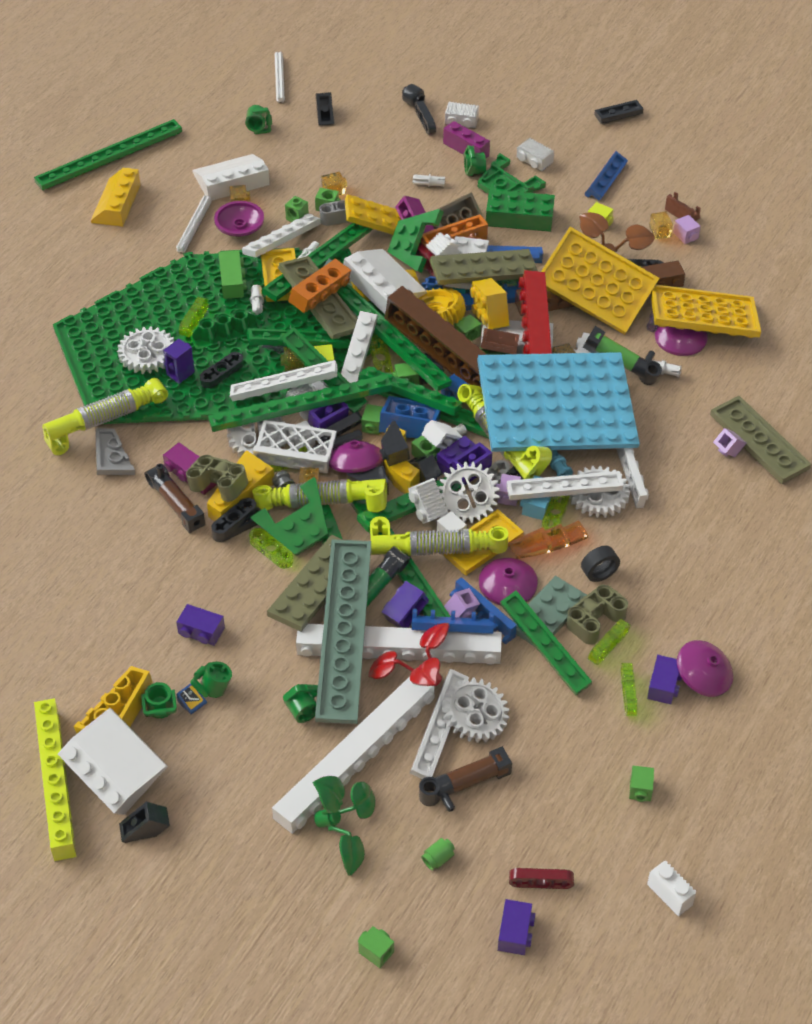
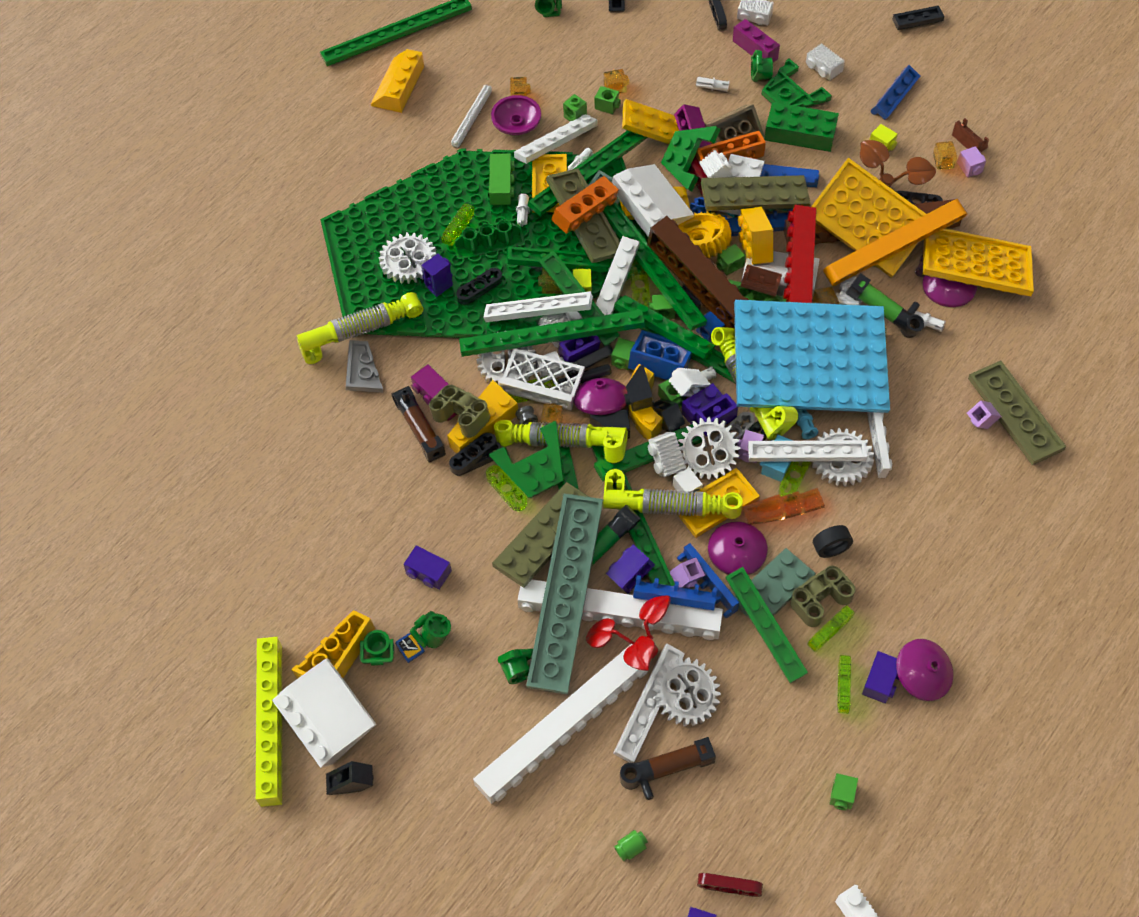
camera: 10 degrees right, 10 degrees up
(240, 171) = (520, 60): white slope -> none
(331, 794) = (528, 782): green plant -> none
(333, 213) = (612, 114): light grey beam -> none
(623, 299) = (894, 242): none -> light orange beam

